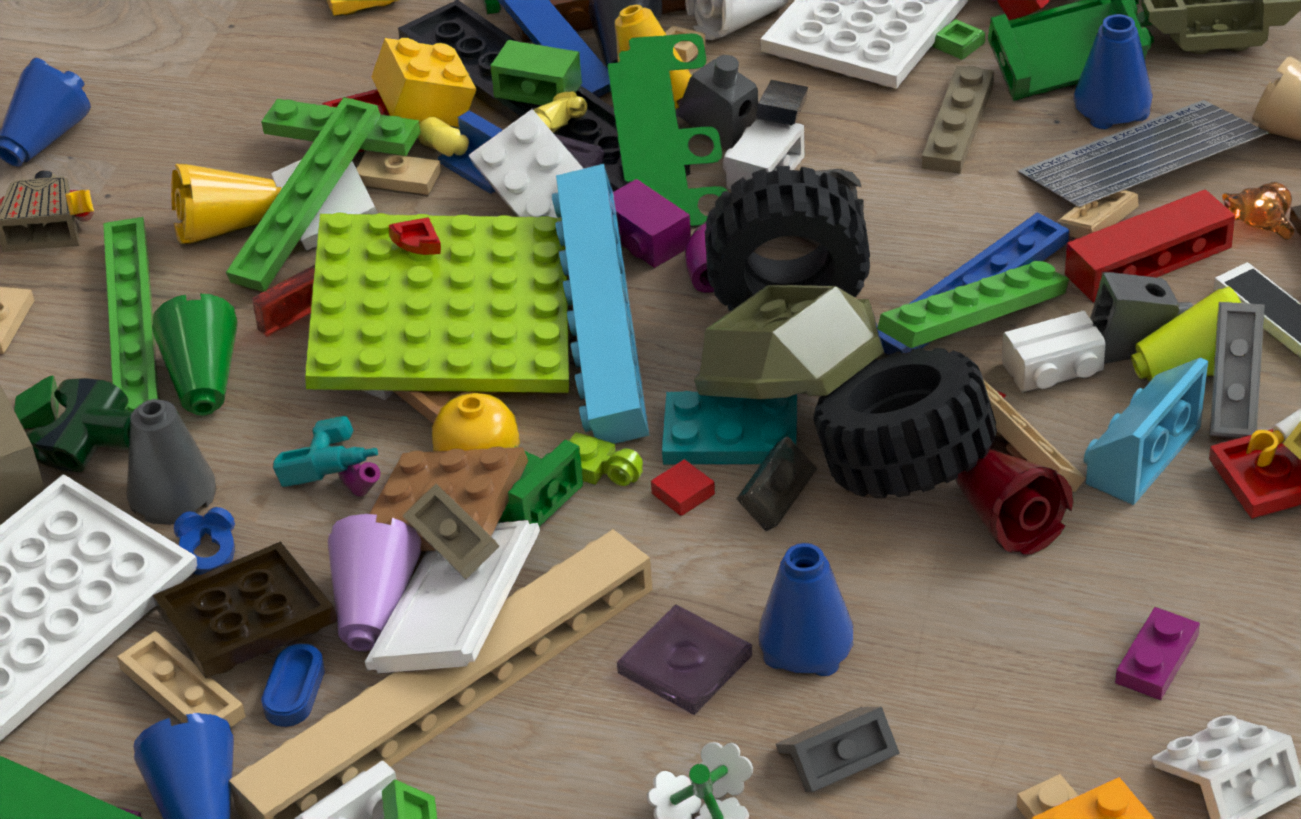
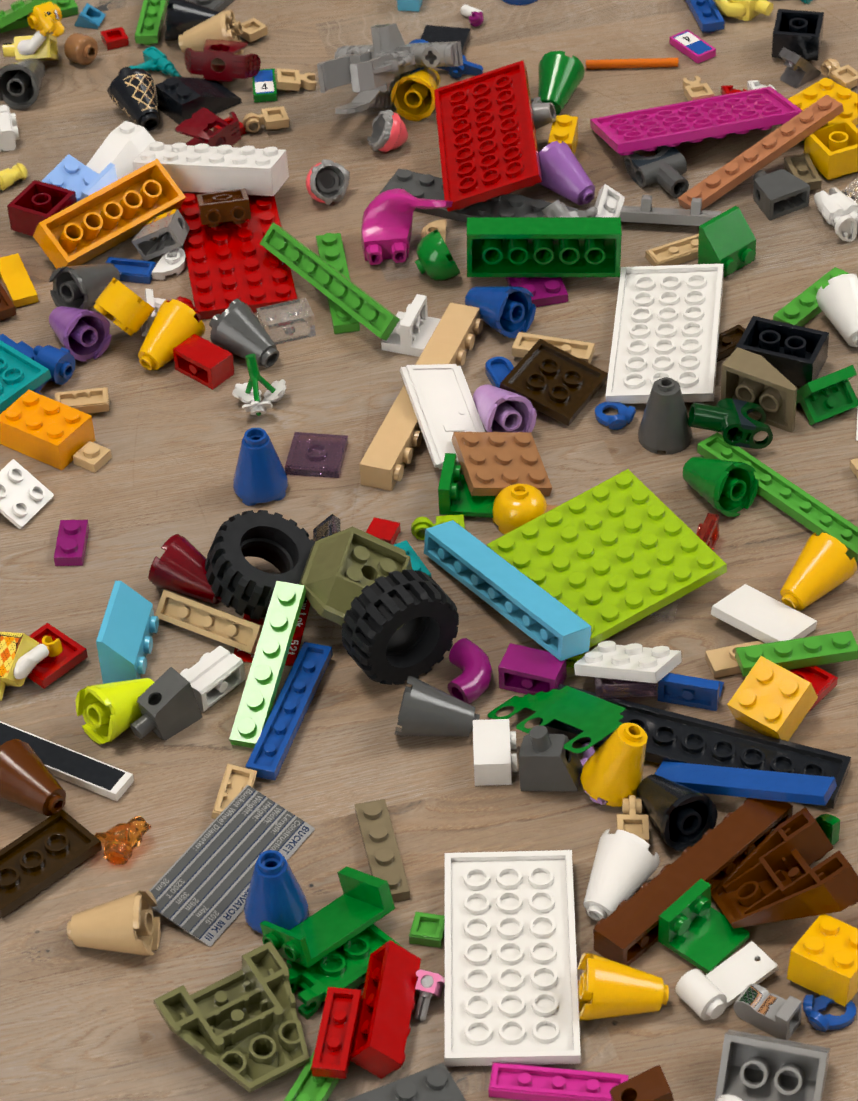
camera: 150 degrees right, 0 degrees up
(37, 404) = (787, 442): green slope -> none
(303, 194) = (763, 592): bright green plate -> none
(320, 459) = (594, 459): teal piece -> none
(360, 478) = (563, 467): magenta arm -> none
(416, 236) = (646, 566): red tile -> none
(442, 137) = (727, 680): light yellow arm -> none
(451, 531) = (459, 417): dark tan plate -> none
(534, 72) = (695, 731): bright green brick -> none
(561, 109) = (657, 707): light yellow arm -> none
(782, 102) = (506, 786): black tile -> none
(840, 747) = (214, 440): dark grey panel -> none
(1152, 242) = (186, 778): red brick -> none
(1237, 369) = (84, 679): light grey tile -> none

